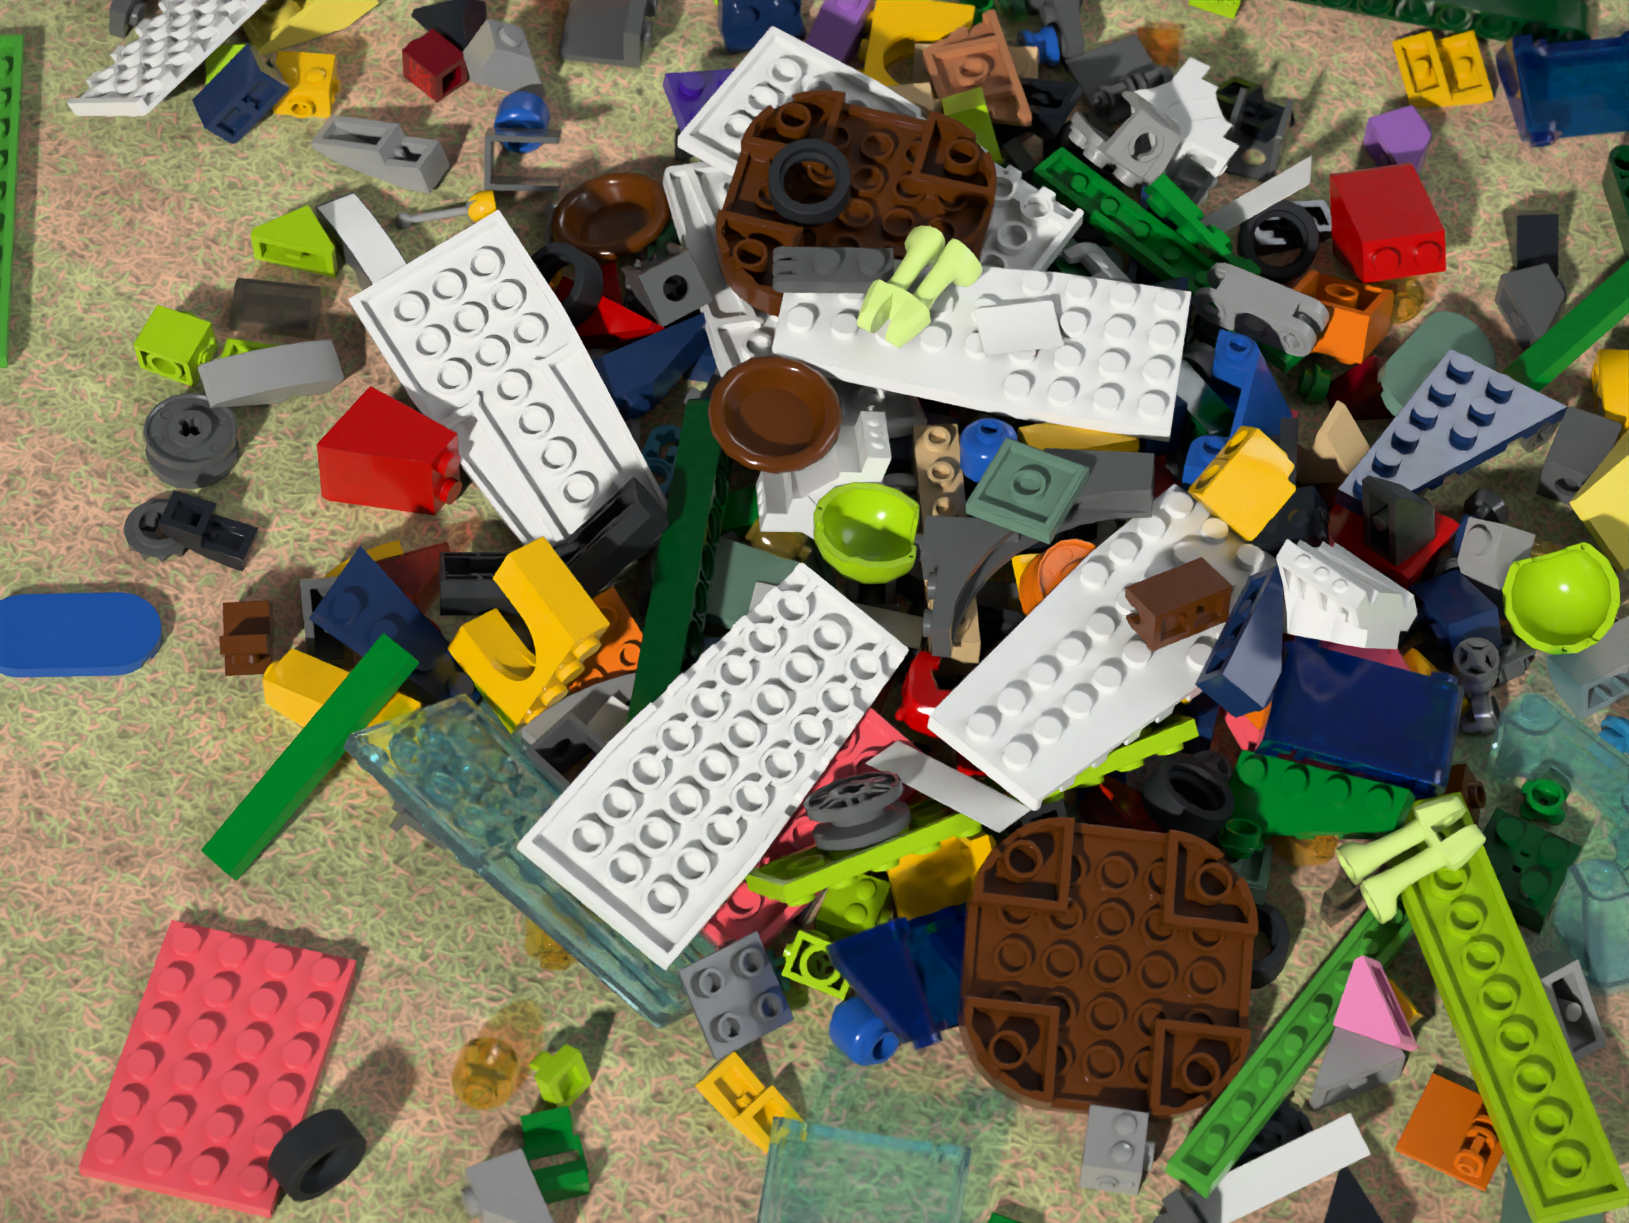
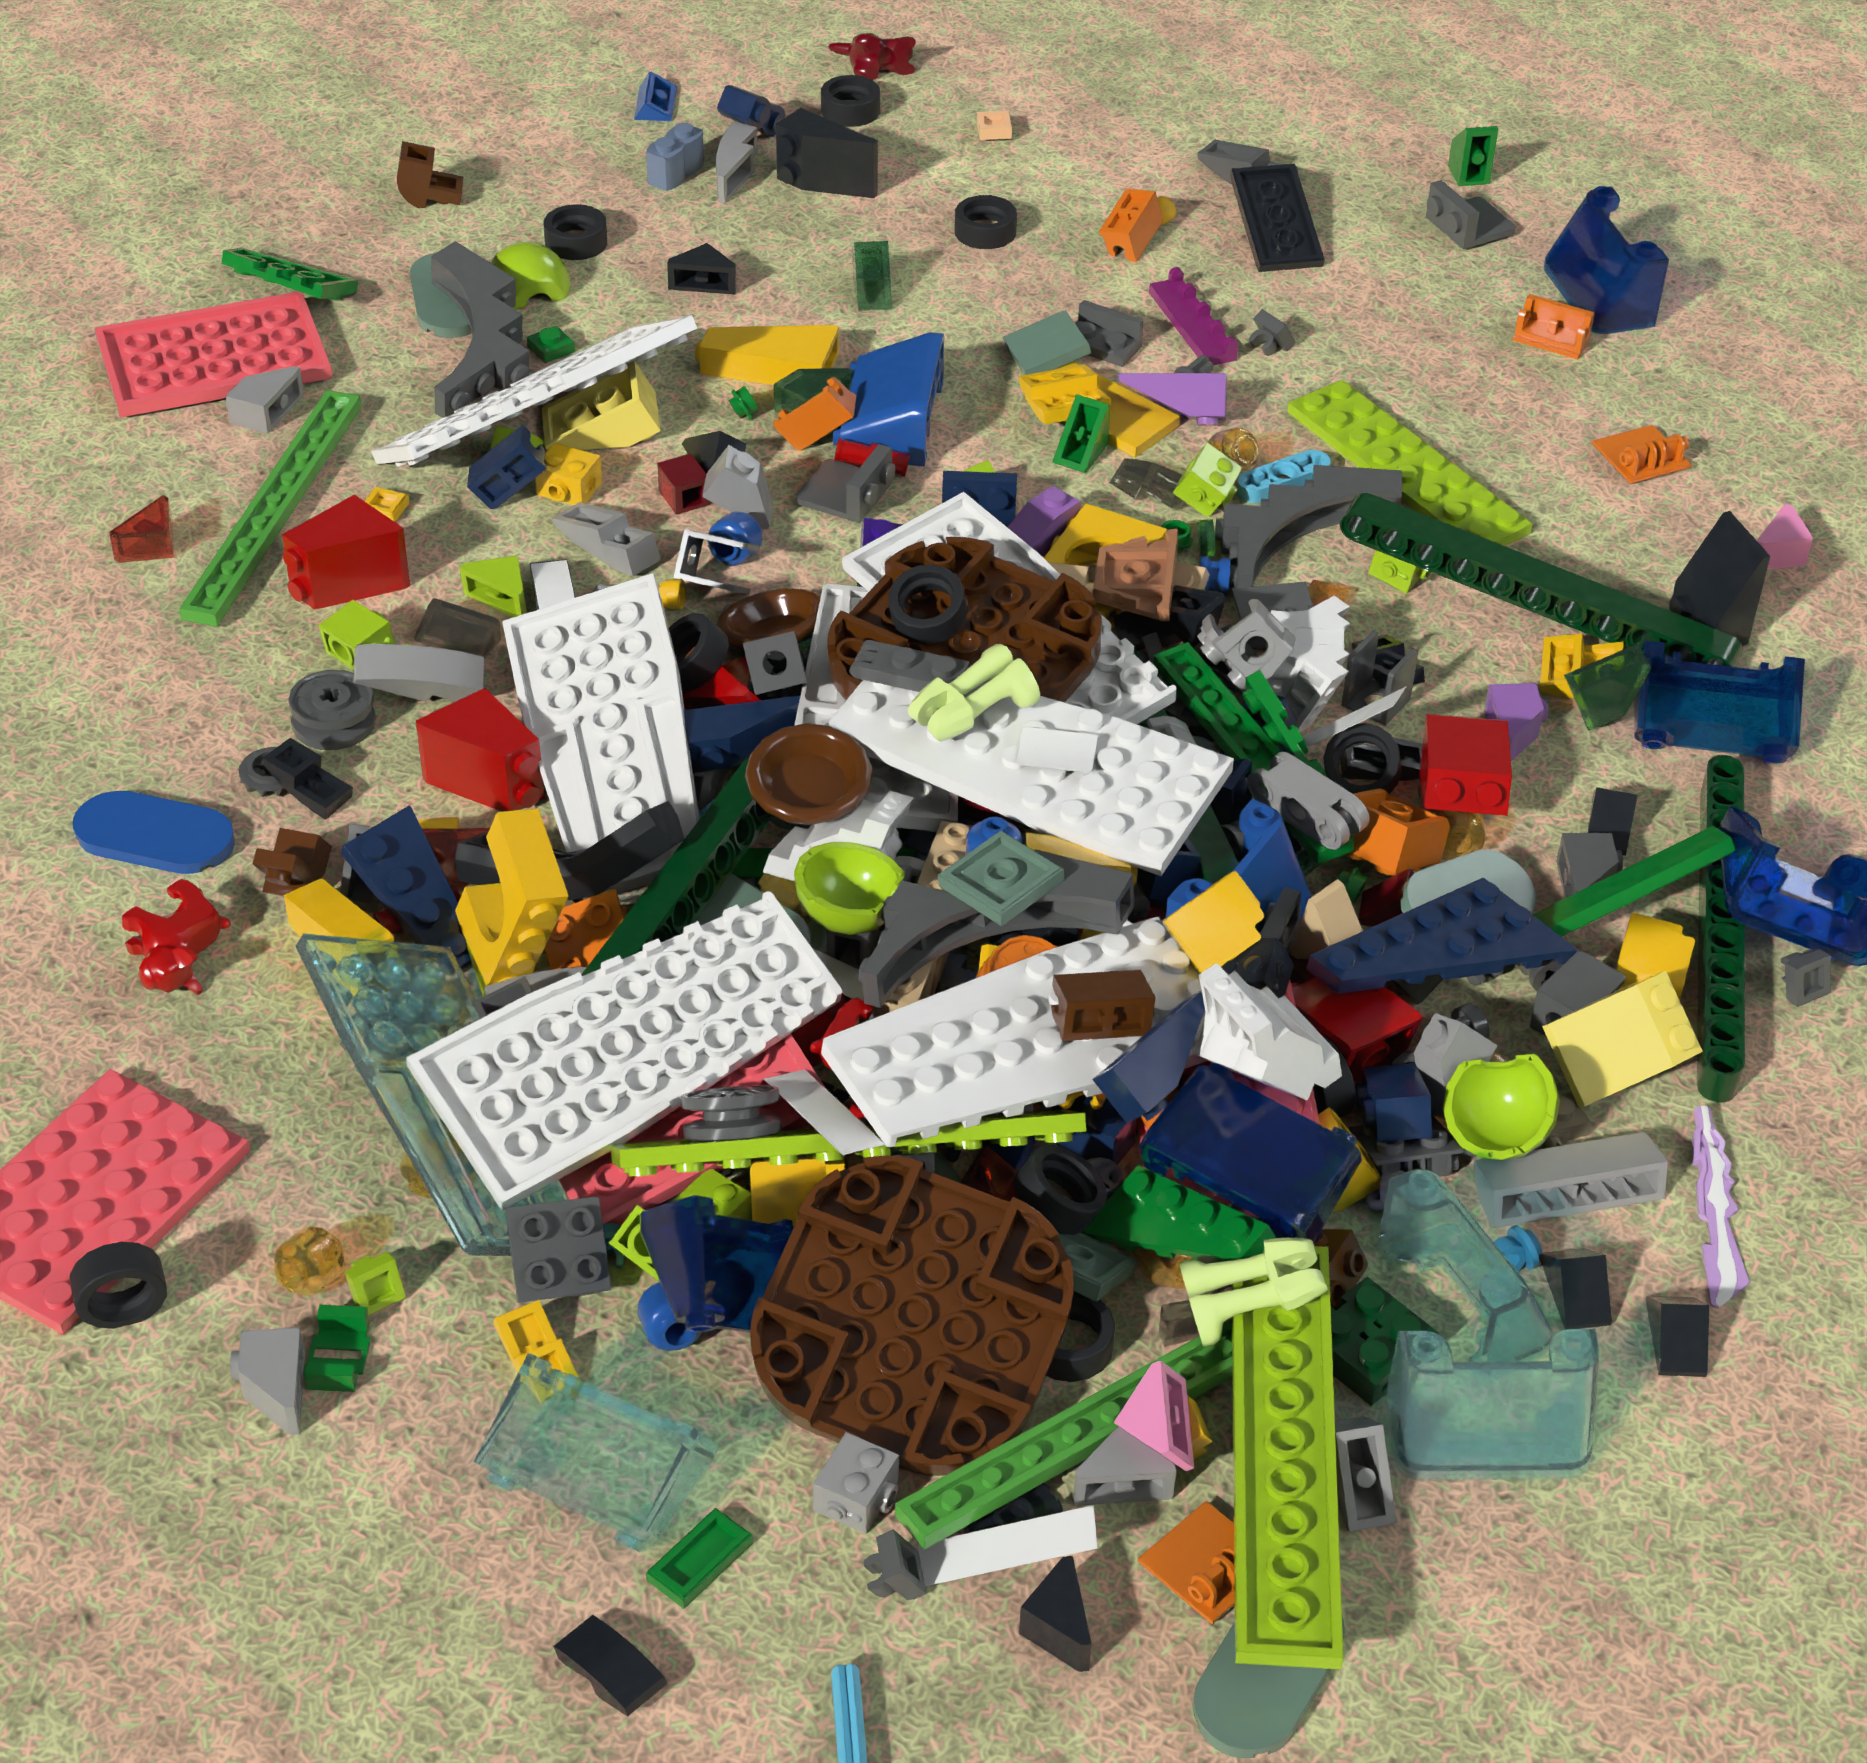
camera: 20 degrees right, 10 degrees down
(114, 168) = (388, 502): none -> yellow tile
(121, 249) = (345, 555): none -> red slope
(164, 756) = (174, 939): none -> red animal
(309, 757) = (280, 962): green tile -> none
(972, 111) = (1114, 602): lime slope -> none
(1241, 838) = (1101, 1239): green plate -> none
(1395, 520) = (1354, 991): pearl dark grey slope -> none
(1476, 654) = (1400, 1135): dark grey wheel -> none
(1485, 91) = (1608, 686): none -> clear green slope
(1547, 791) = (1423, 1277): green plate -> none

